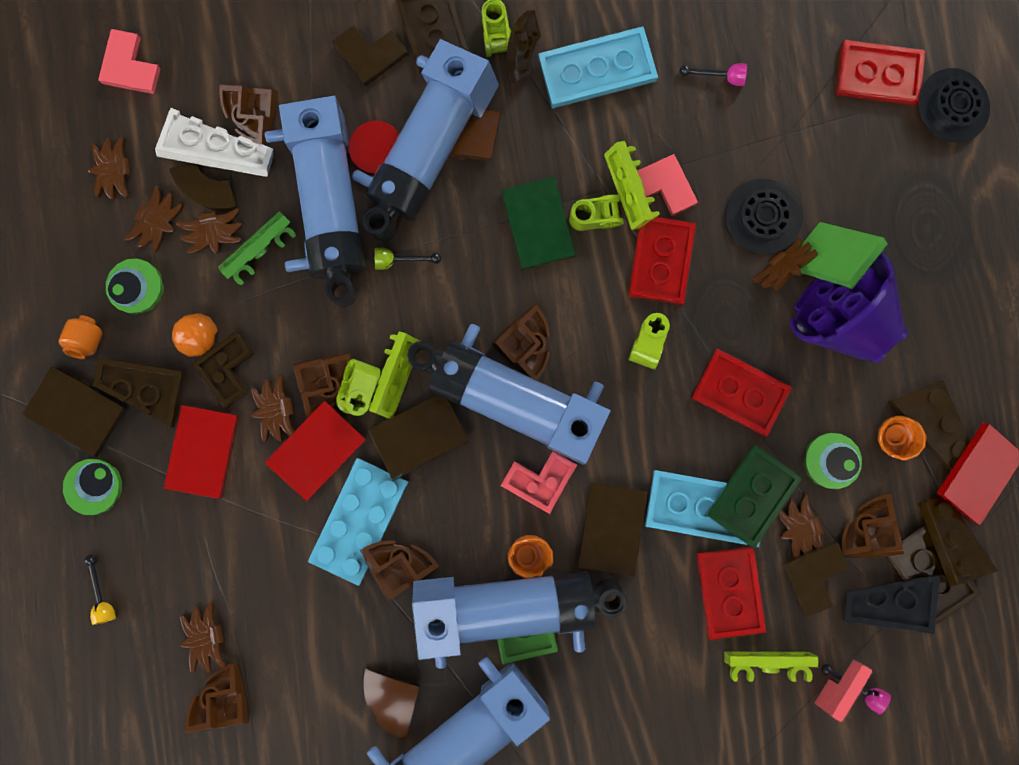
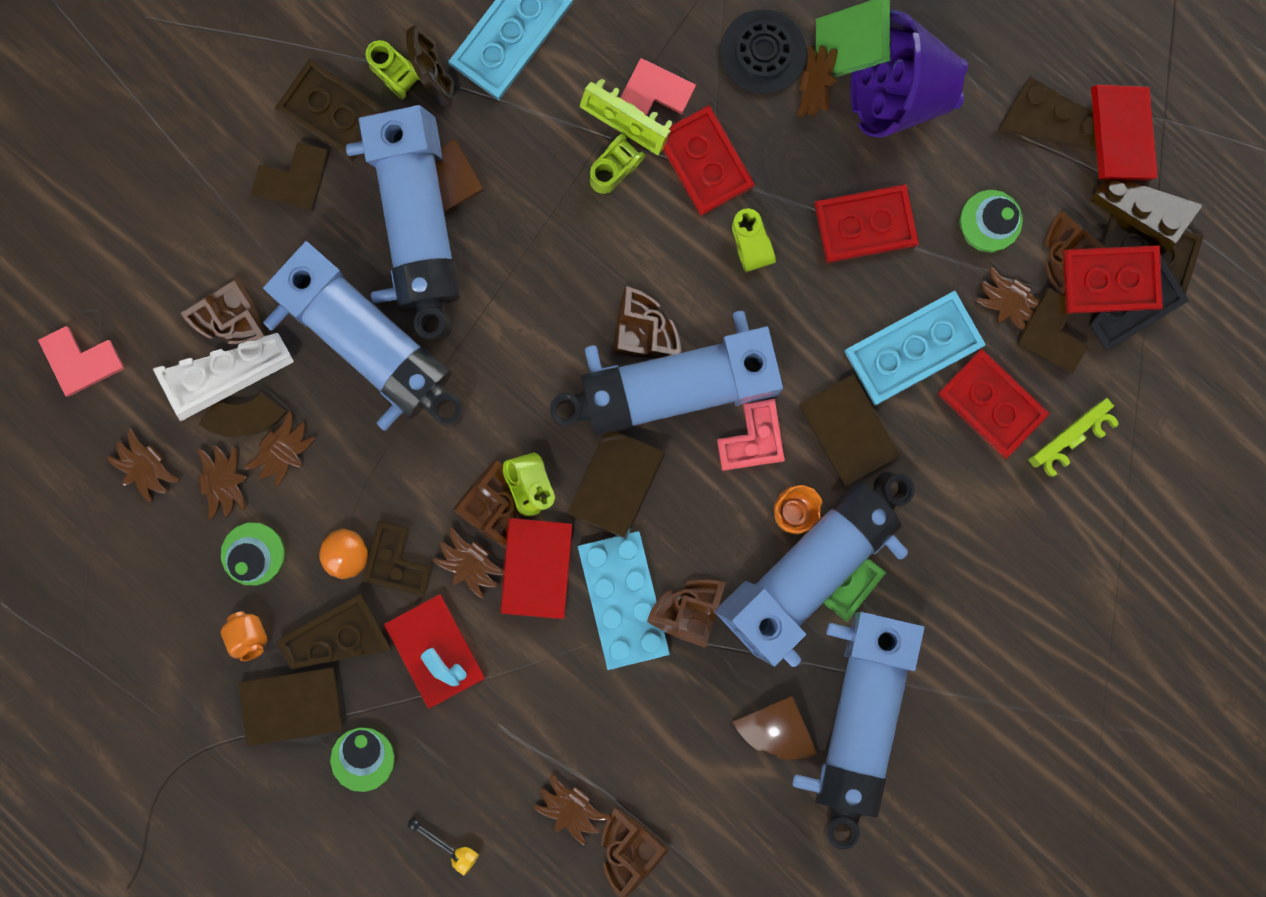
camera: 45 degrees left, 0 degrees up
(191, 471) = (441, 671): none -> medium azure arm
(255, 247) = (335, 431): bright green plate -> none
(371, 145) = (366, 260): red tile -> none
(384, 258) = (459, 352): hinge -> none
(393, 376) = (551, 447): lime plate -> none
(538, 223) = (569, 213): dark green tile -> none
(753, 496) = (947, 305): dark green tile -> none
(839, 698) = (1150, 418): coral tile -> none
(875, 698) = (1184, 396): dark pink hinge -> none
(890, 574) = (1112, 279): none -> red tile
(901, 437) = (1032, 154): orange hair -> none

